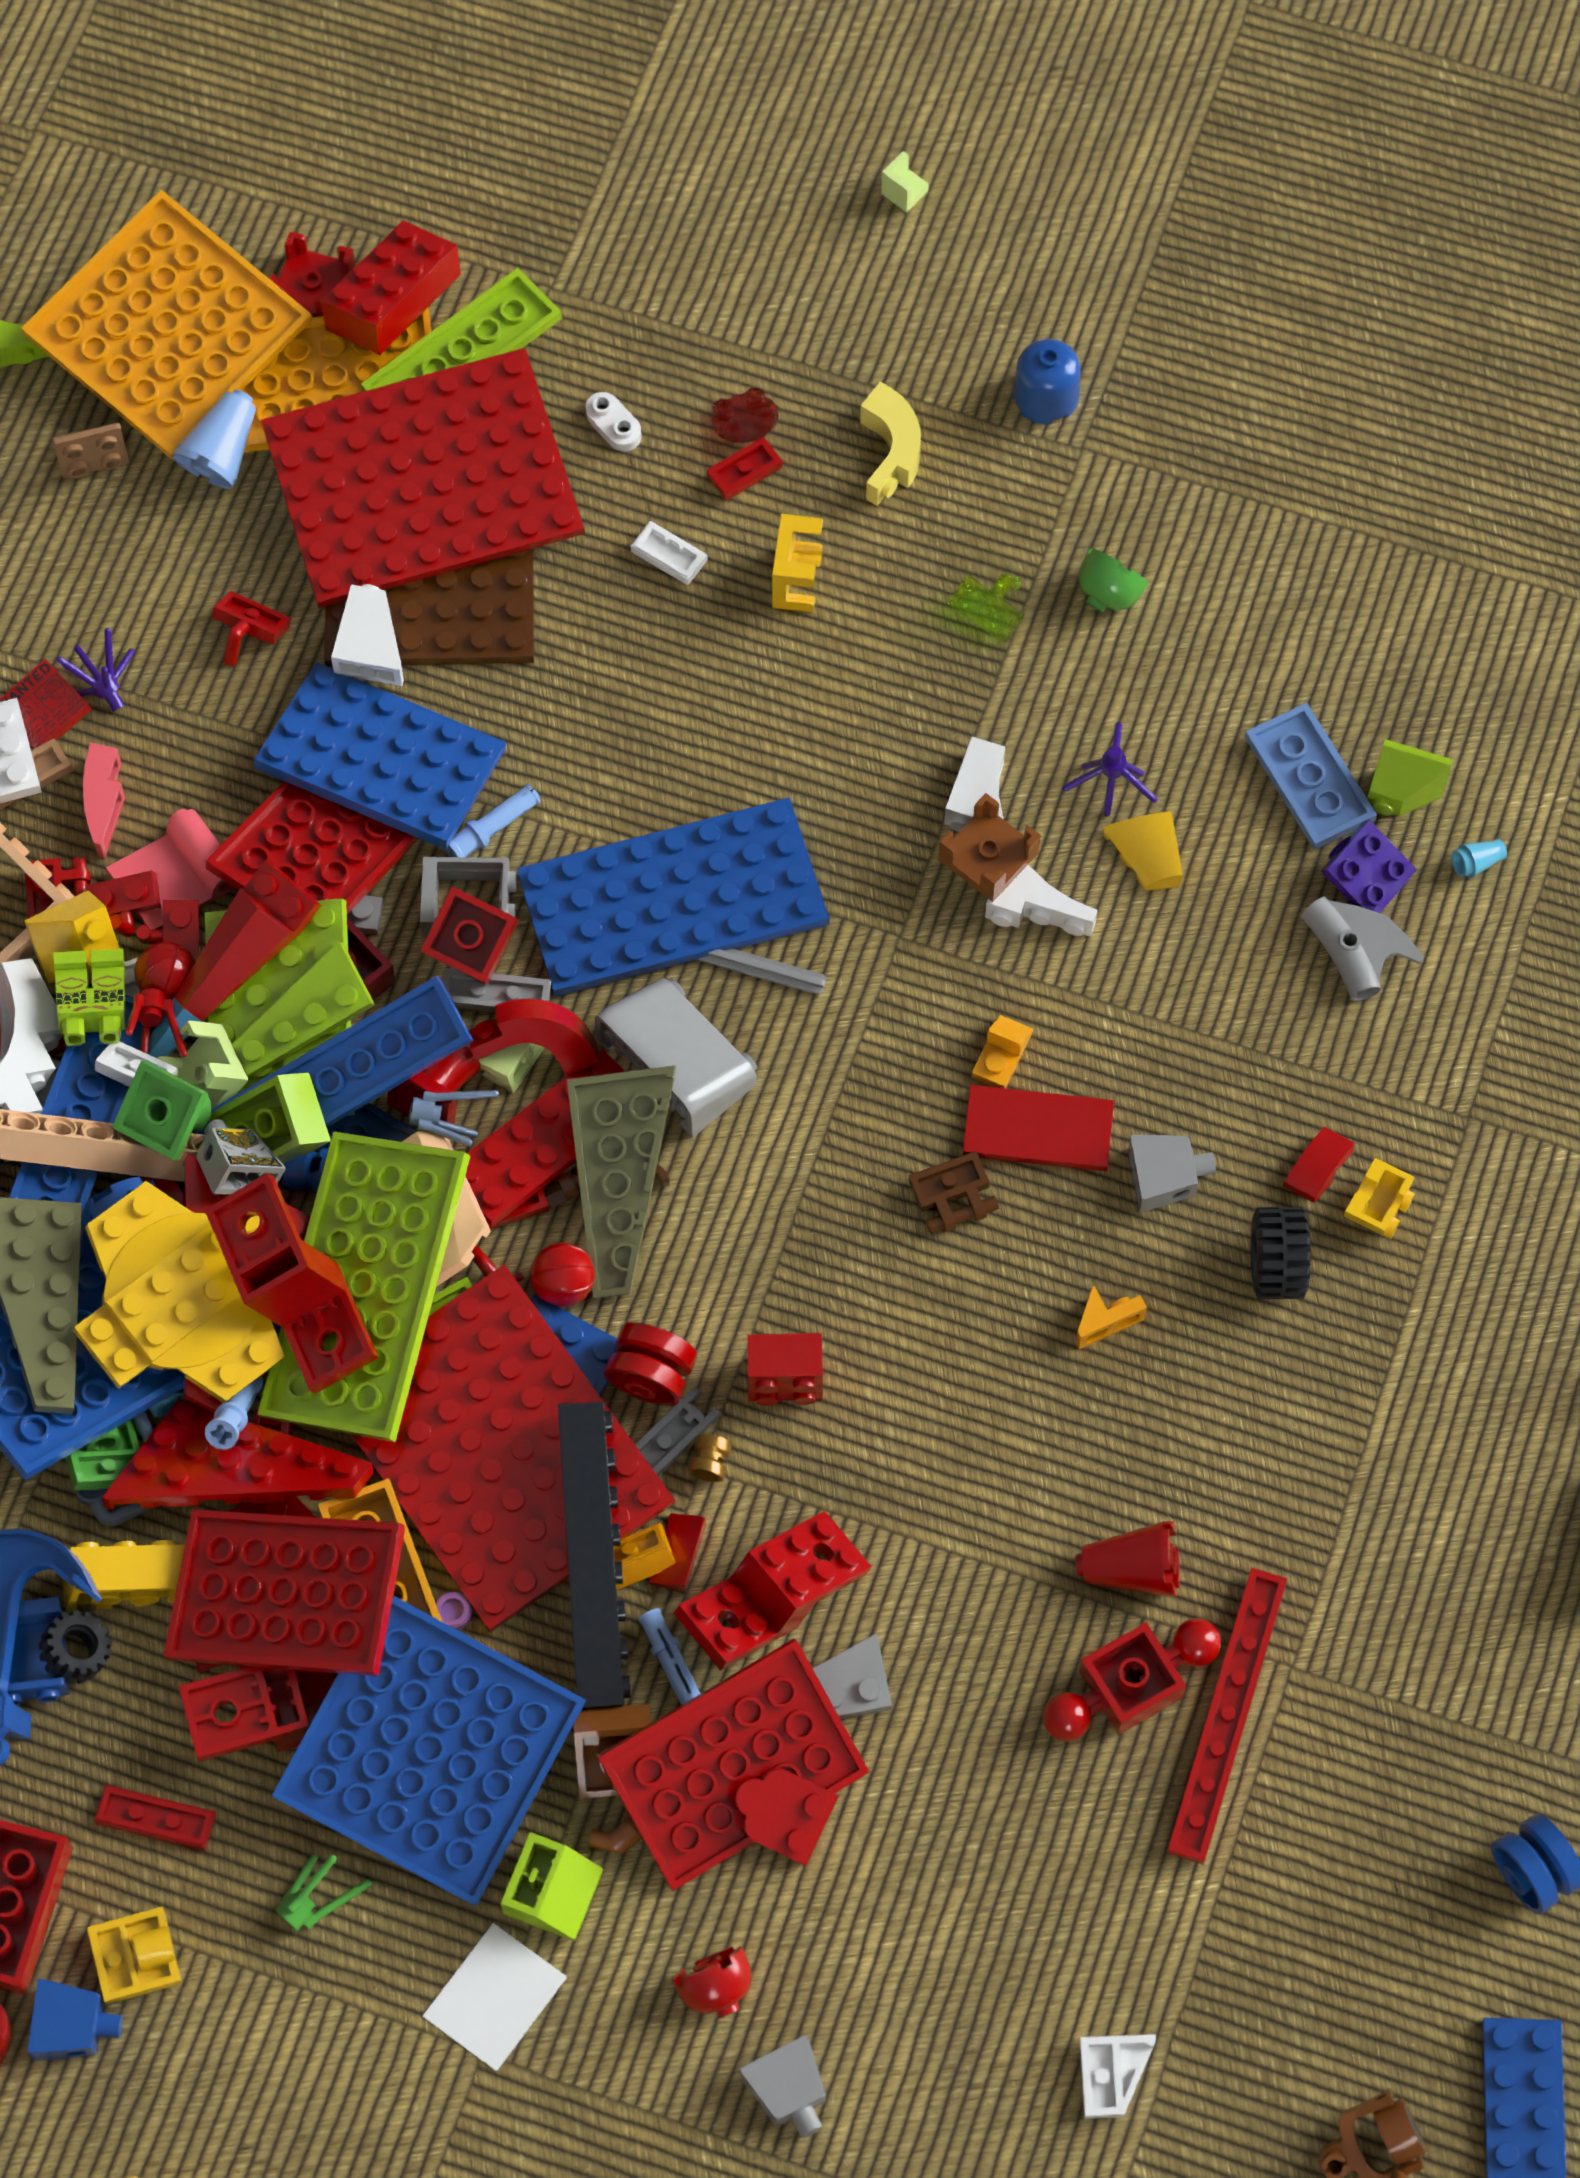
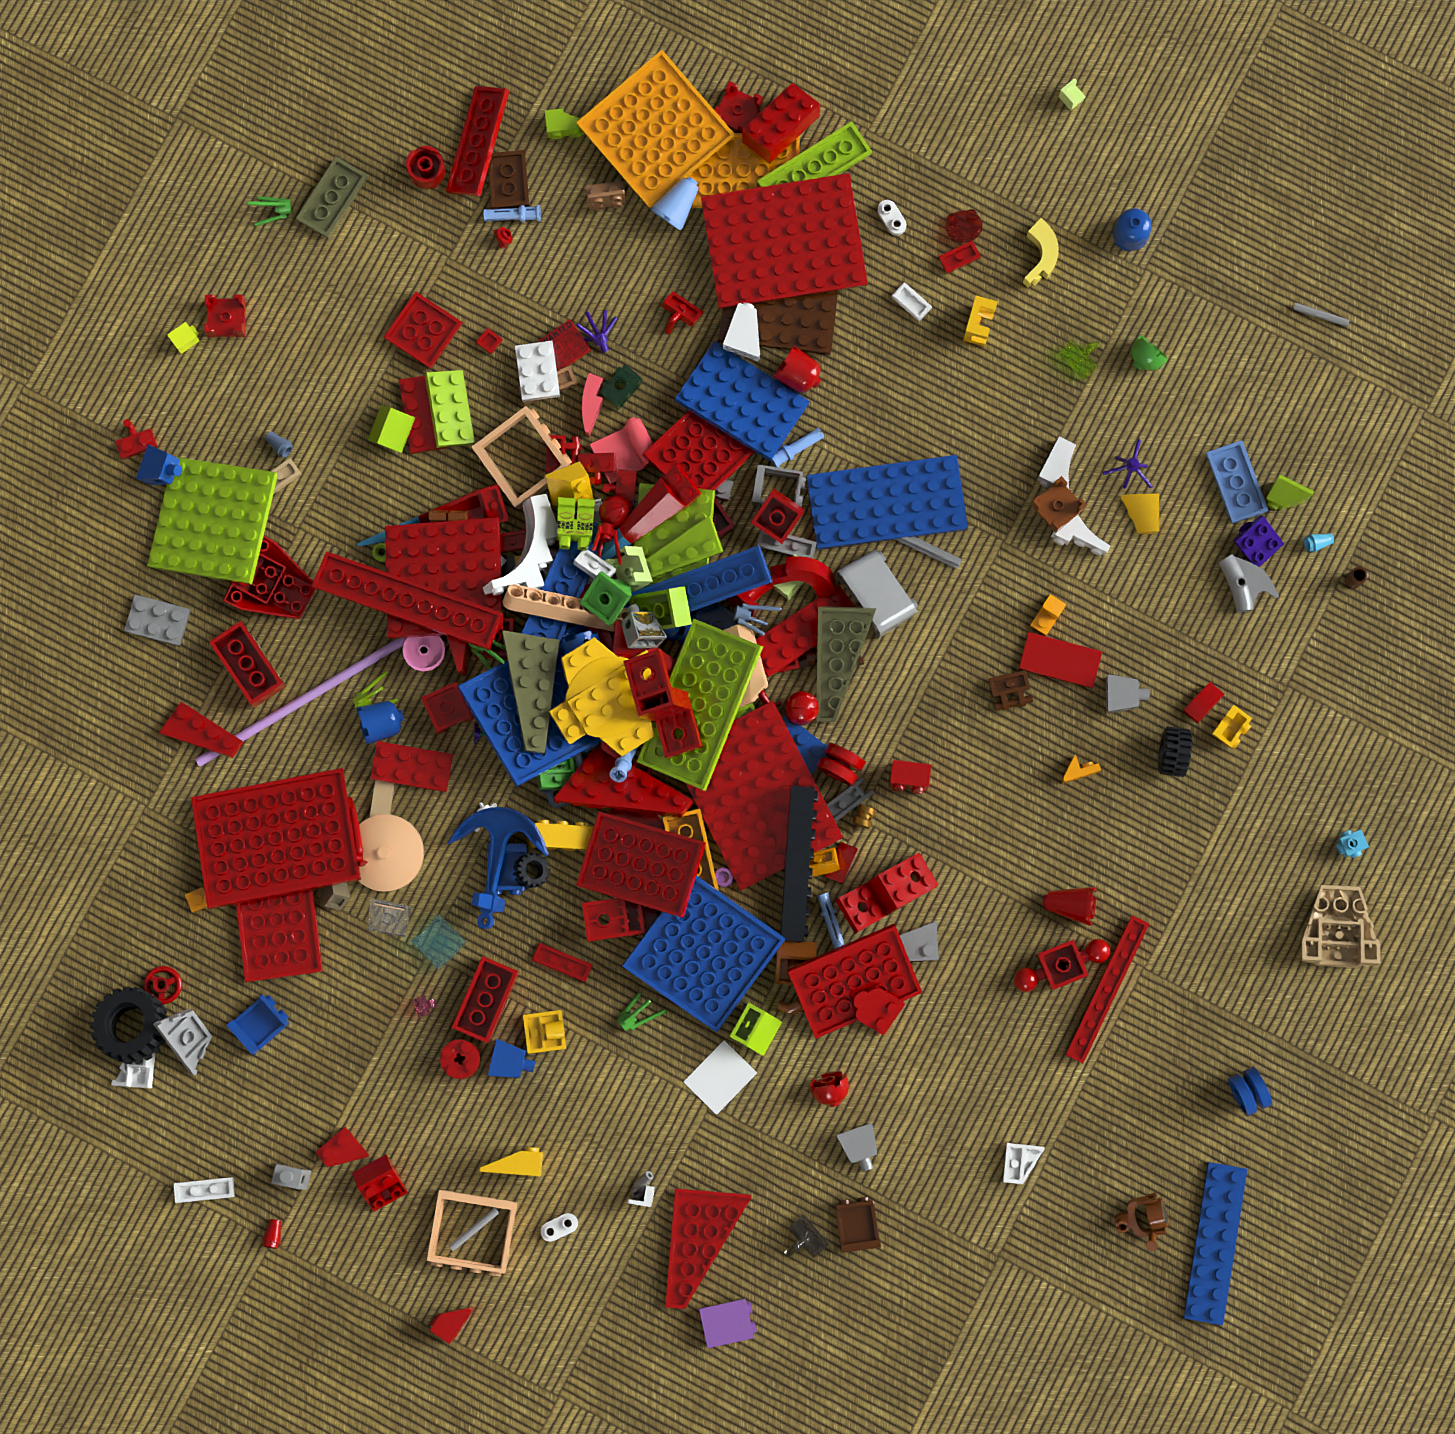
camera: 10 degrees right, 15 degrees up
(152, 781) = (616, 397): none -> clear green brick
(478, 690) = (799, 371): none -> red cylinder
(1410, 480) = (1321, 314): none -> light grey piece
(1559, 905) = (1351, 582): none -> reddish brown piece

